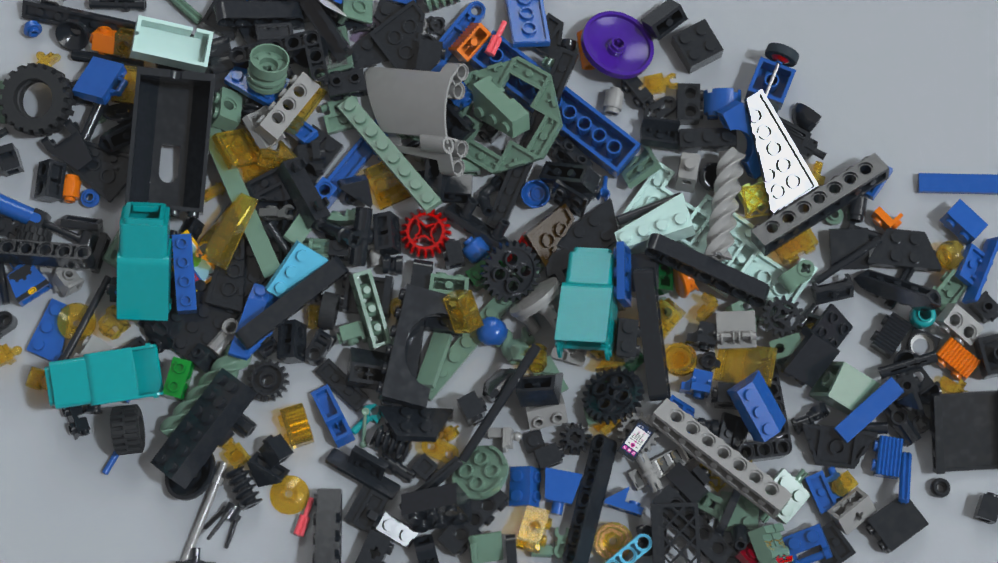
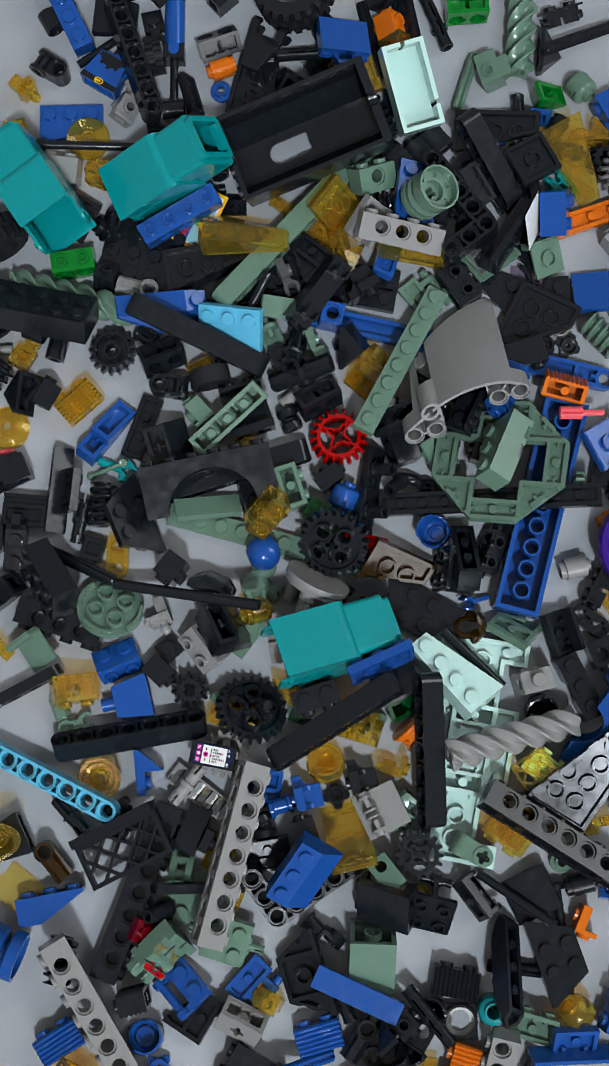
camera: 65 degrees right, 5 degrees up
(450, 433) = (138, 559): clear yellow plate -> none
(632, 198) = (476, 634): none -> dark brown piece
(698, 406) = (280, 805): none -> blue bush

